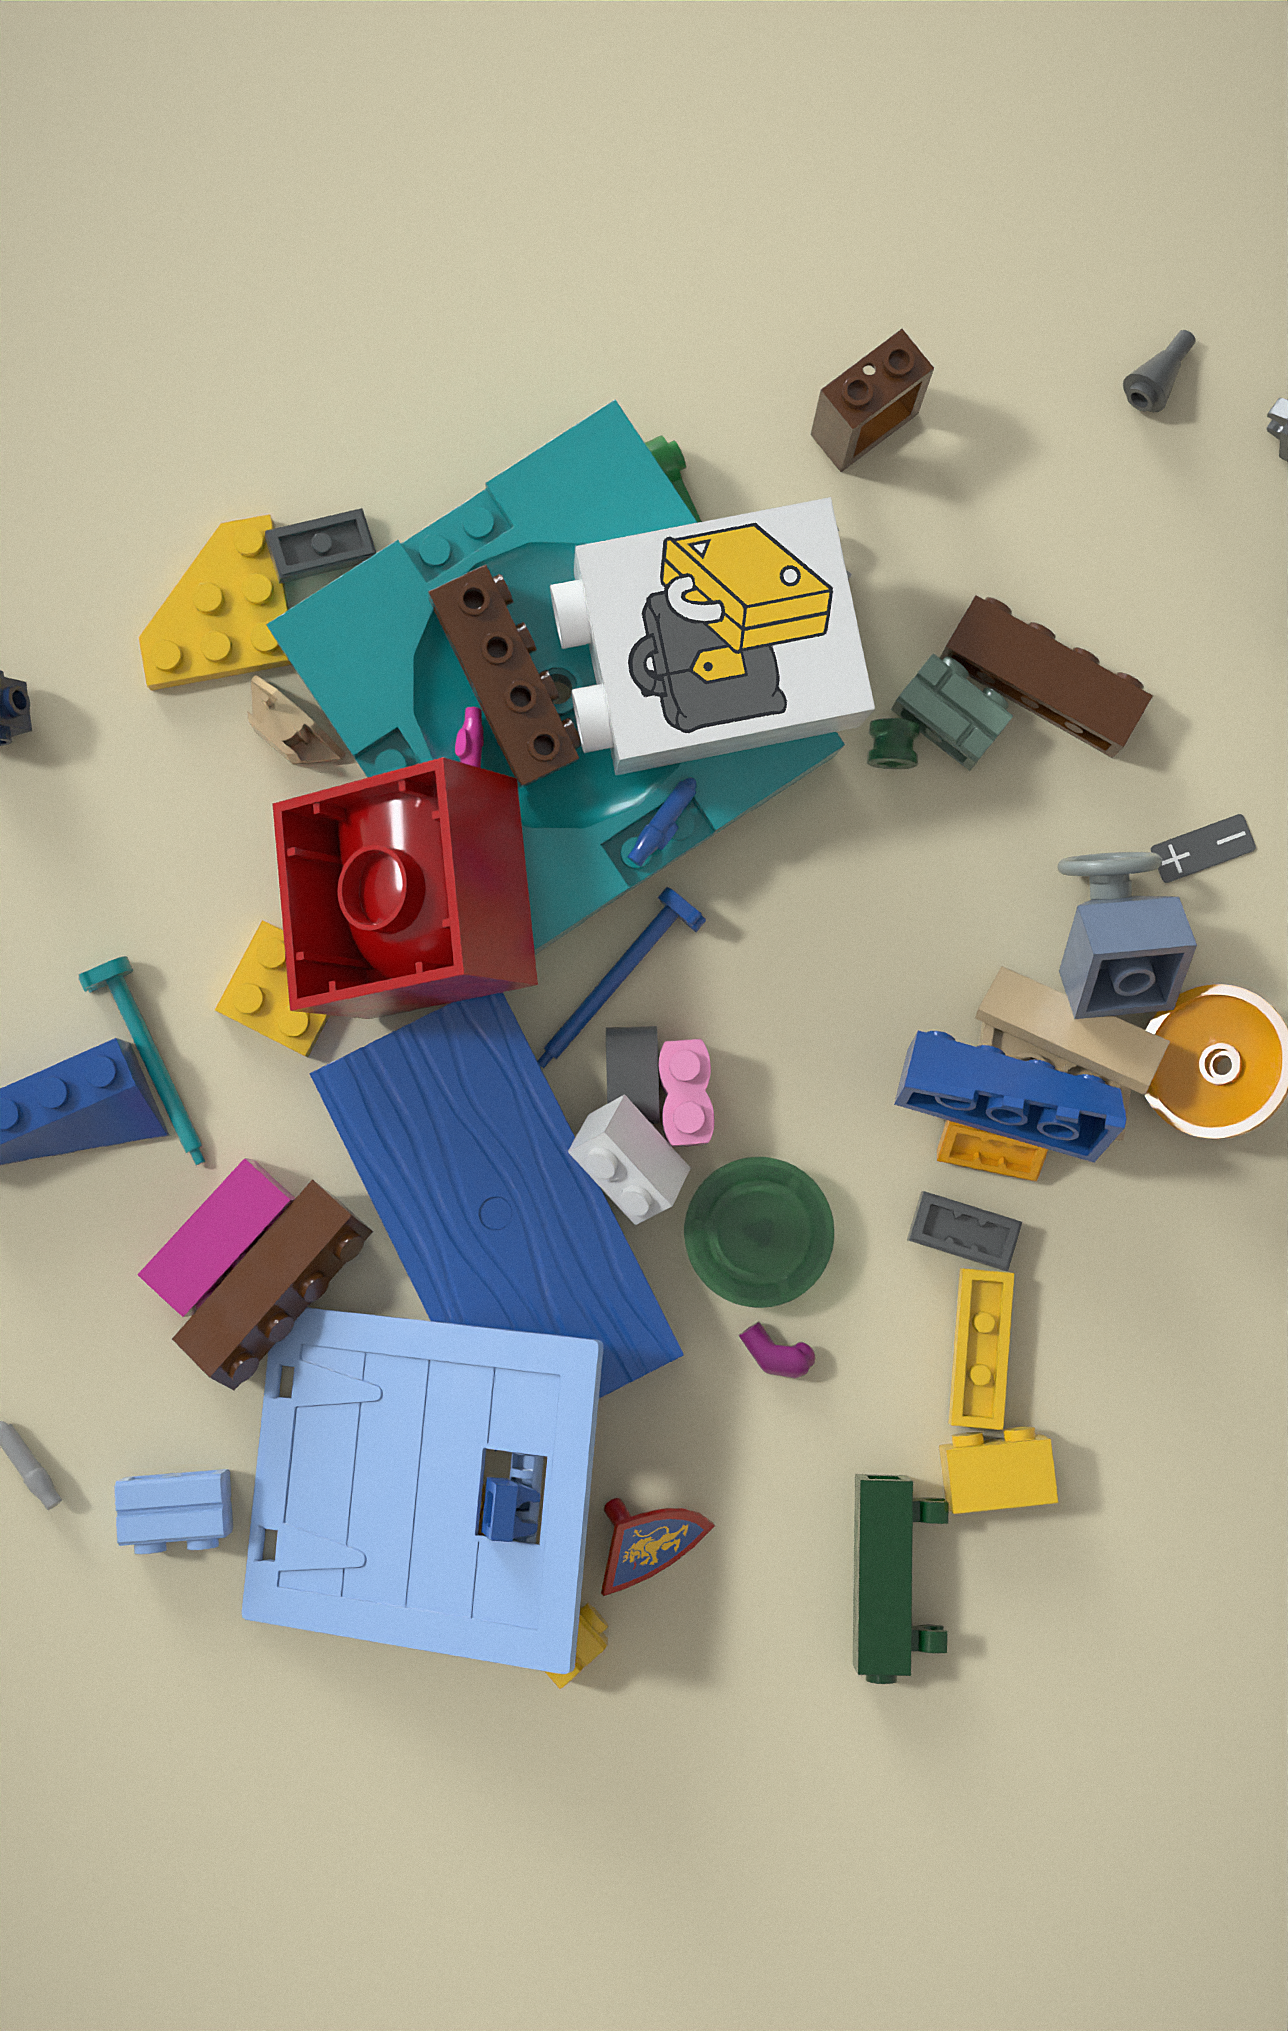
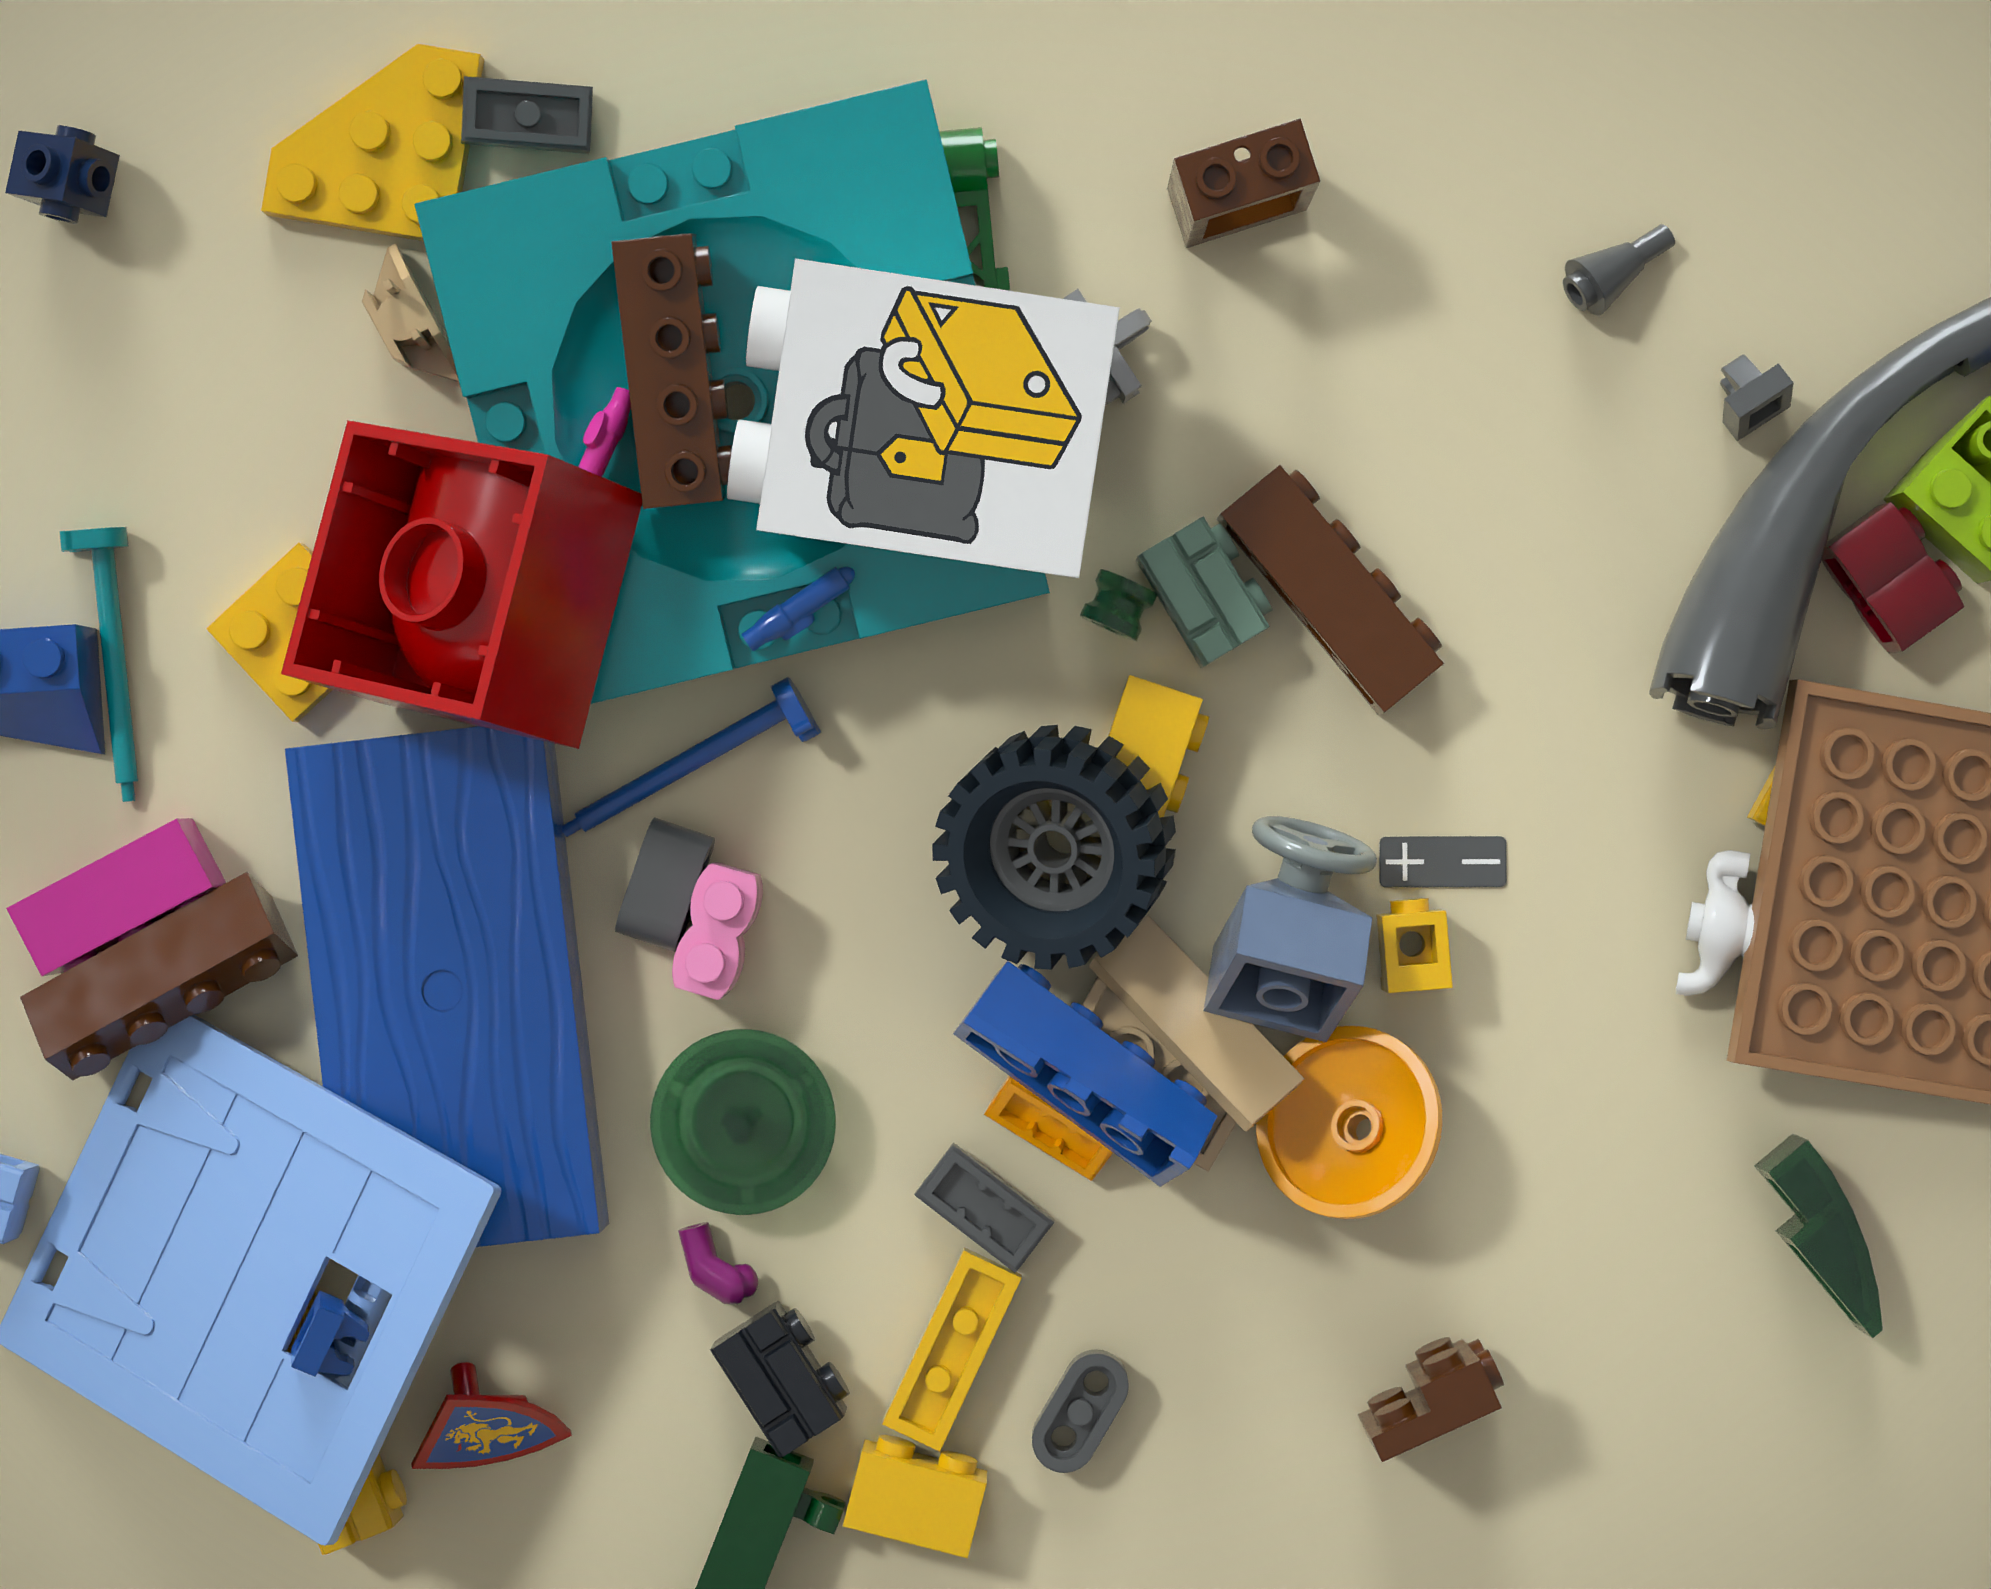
camera: 20 degrees right, 5 degrees up
(629, 1160) = (620, 985): white brick -> none
(860, 1419) = (781, 1377): none -> black brick
(938, 987) = (1018, 902): none -> black wheel
(955, 841) = (1159, 728): none -> yellow brick
(1101, 1359) = (1080, 1409): none -> dark grey plate
(1227, 914) = (1427, 968): none -> yellow brick

